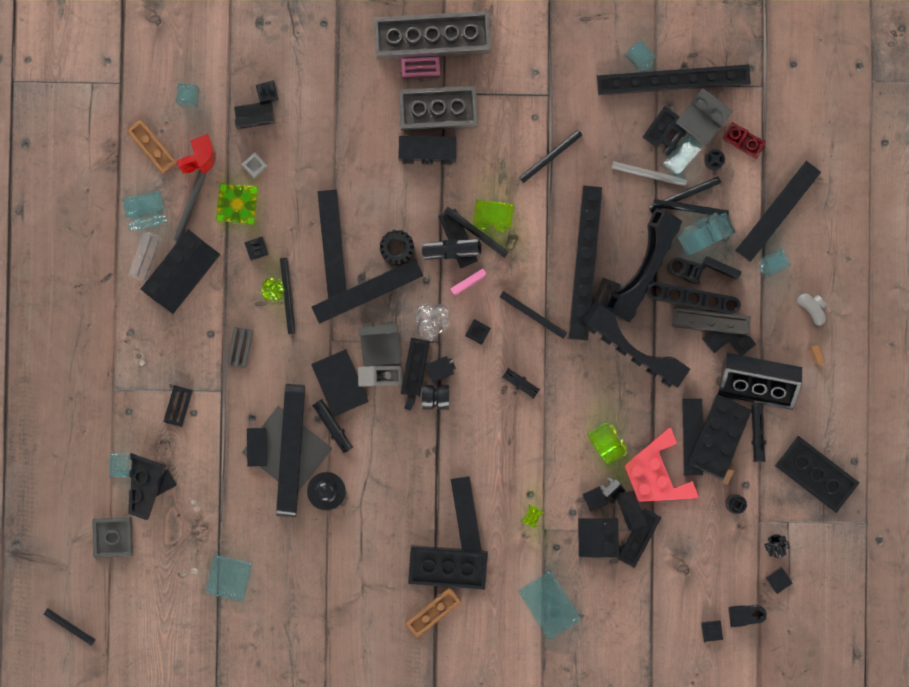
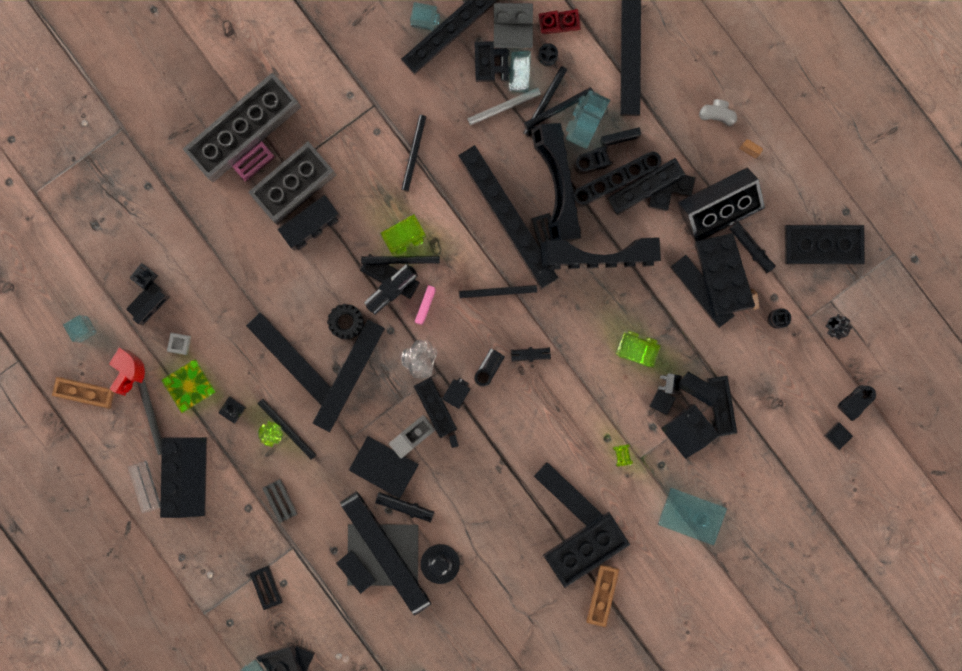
camera: 35 degrees left, 0 degrees up
(142, 205) = (112, 445): clear light blue plate -> none
(380, 344) = (392, 410): dark grey bracket -> none
(435, 397) = (470, 419): black wheel -> none
(477, 332) = (464, 339): black tile -> none
(481, 367) = (489, 366): none -> black piece
(650, 476) = (693, 350): coral wing -> none
(774, 263) = (660, 100): clear light blue brick -> none
(779, 580) = (860, 353): black tile -> none

